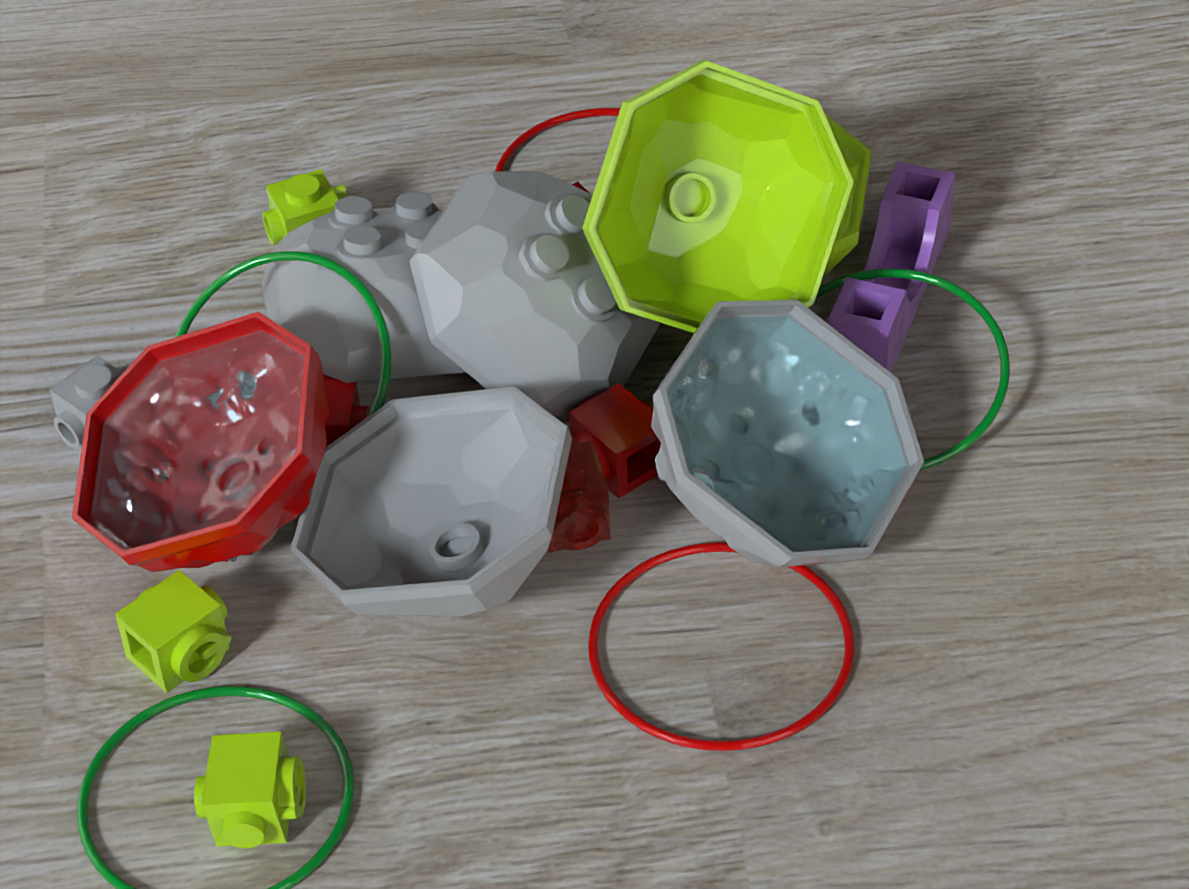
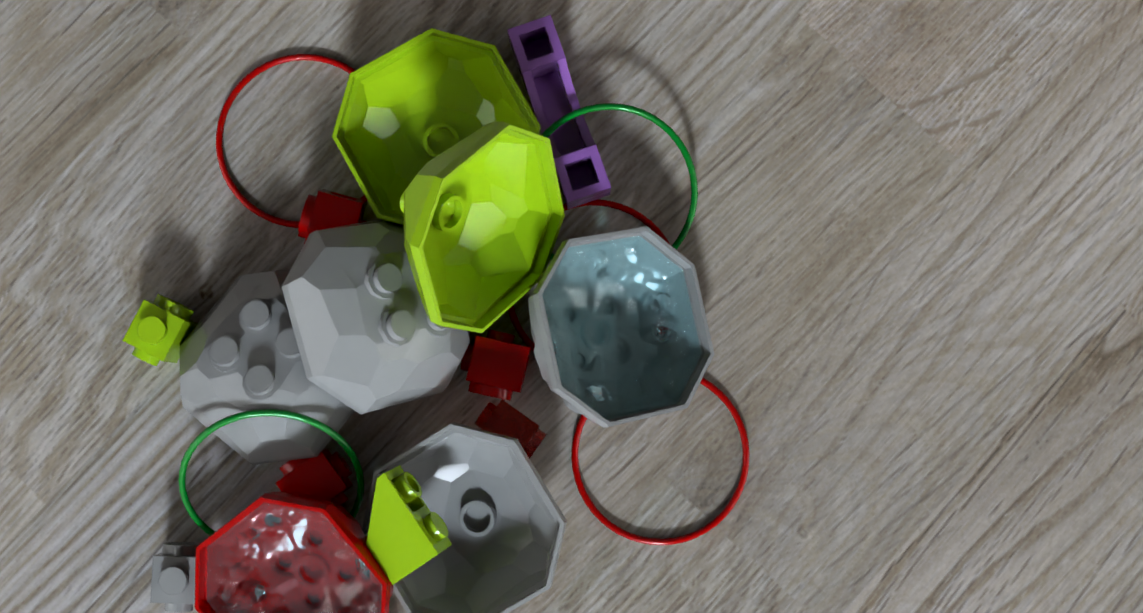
camera: 40 degrees left, 40 degrees up
(369, 438) = (402, 527): none -> lime slope

